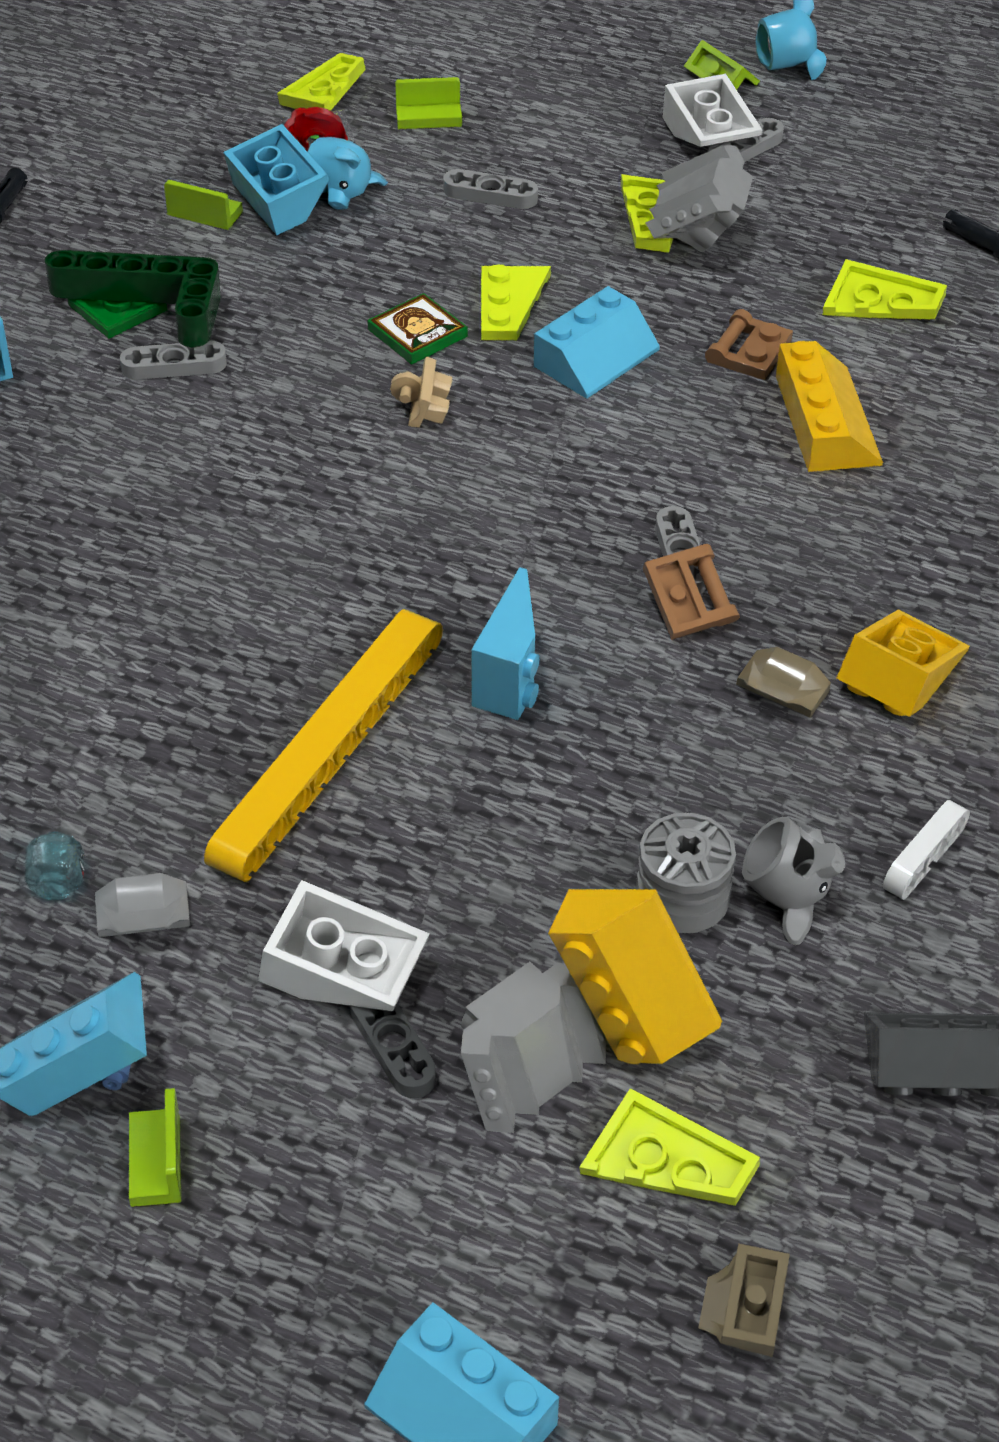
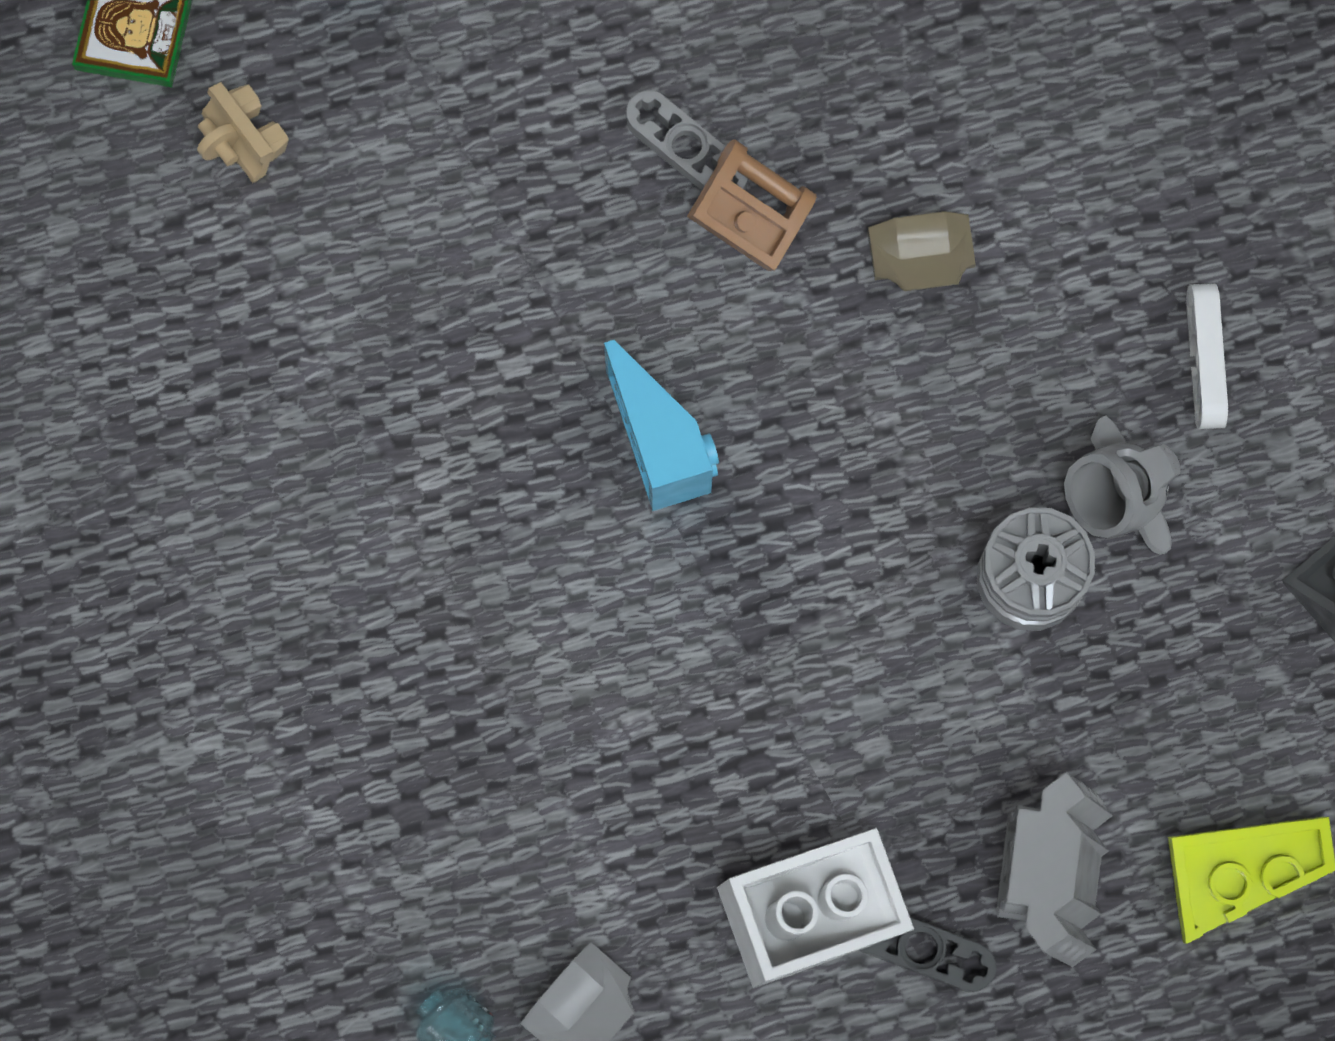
camera: 40 degrees left, 30 degrees up
(319, 747) = (569, 676): yellow beam -> none
(633, 972) = (1119, 757): yellow slope -> none
(900, 662) = (1015, 132): yellow slope -> none

